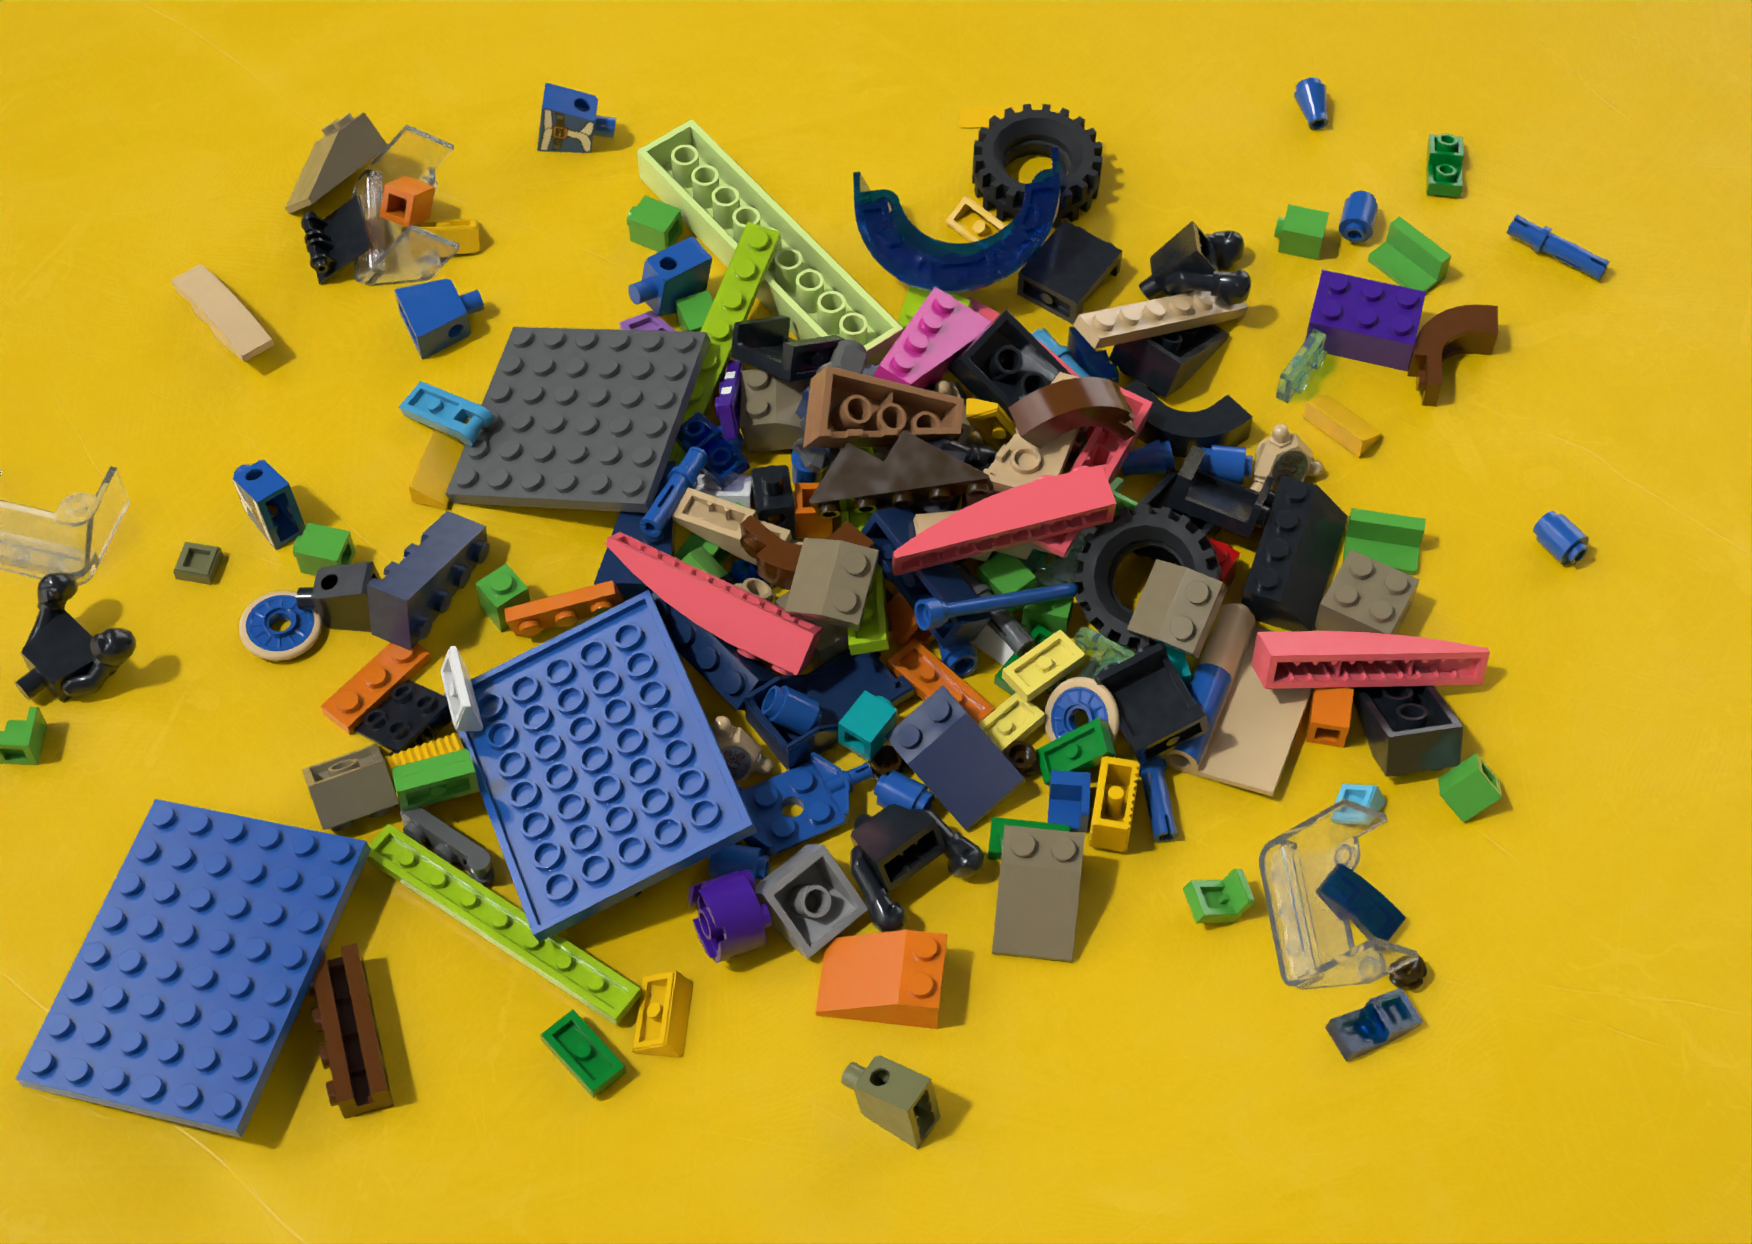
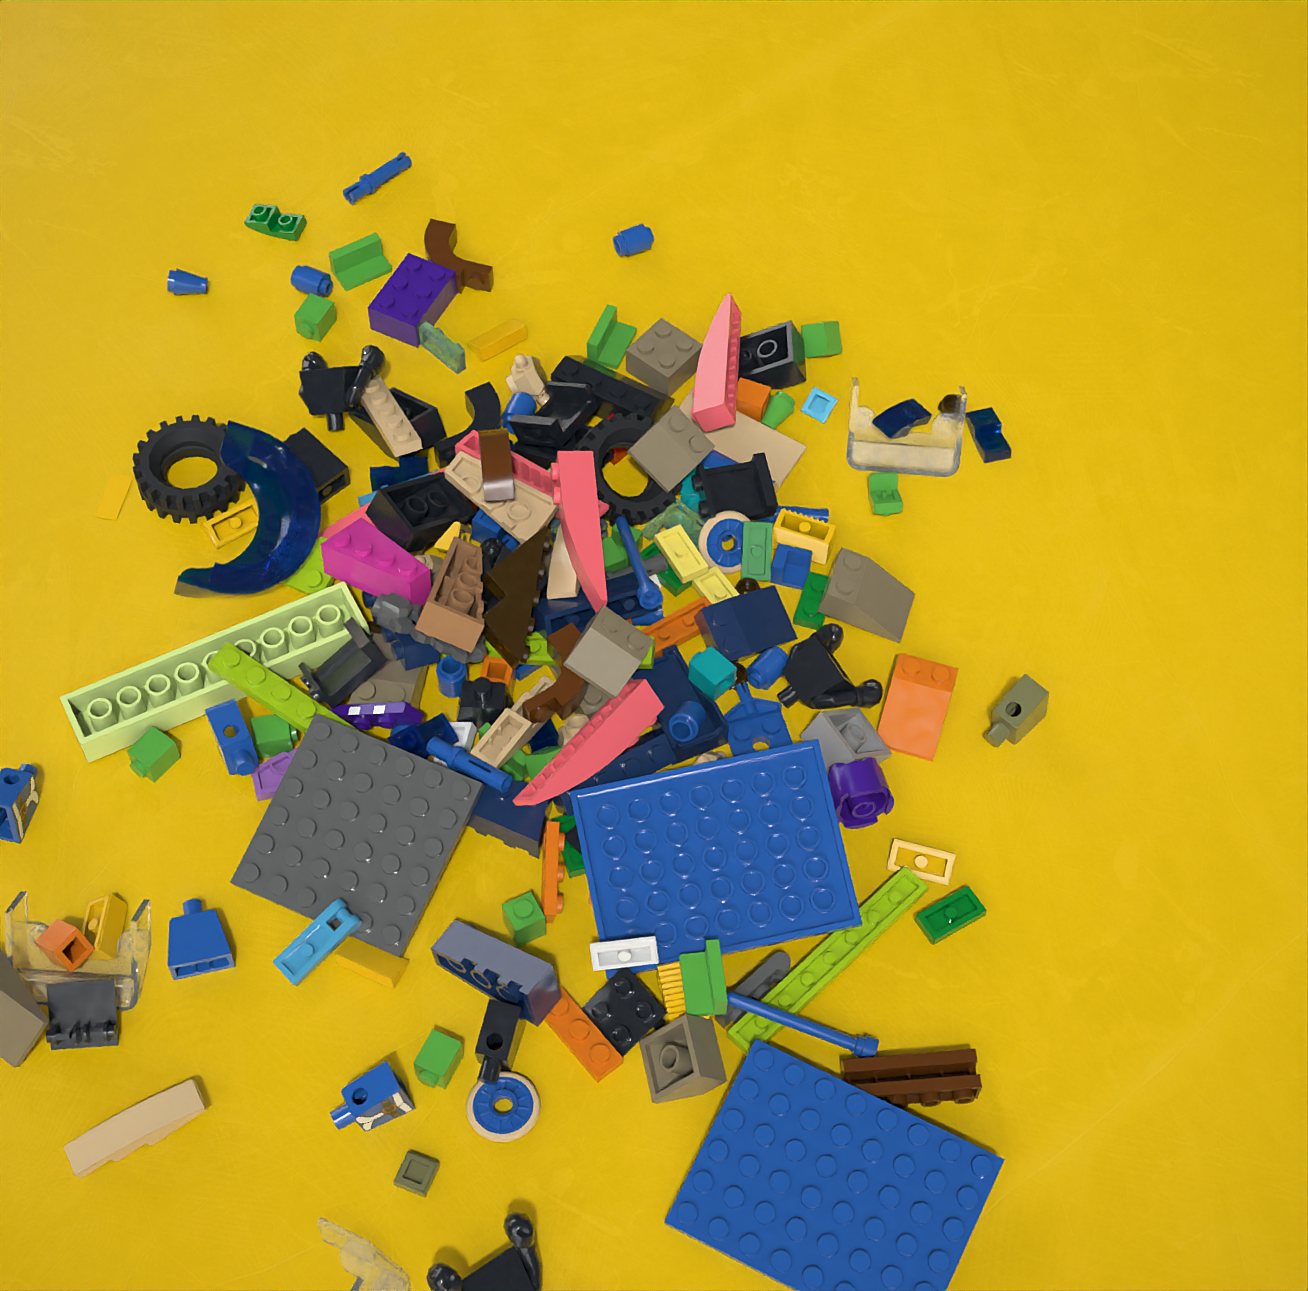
camera: 80 degrees left, 0 degrees up
(387, 973) = (861, 1046): none -> blue piece
(1323, 750) = (778, 409): none -> bright green cone

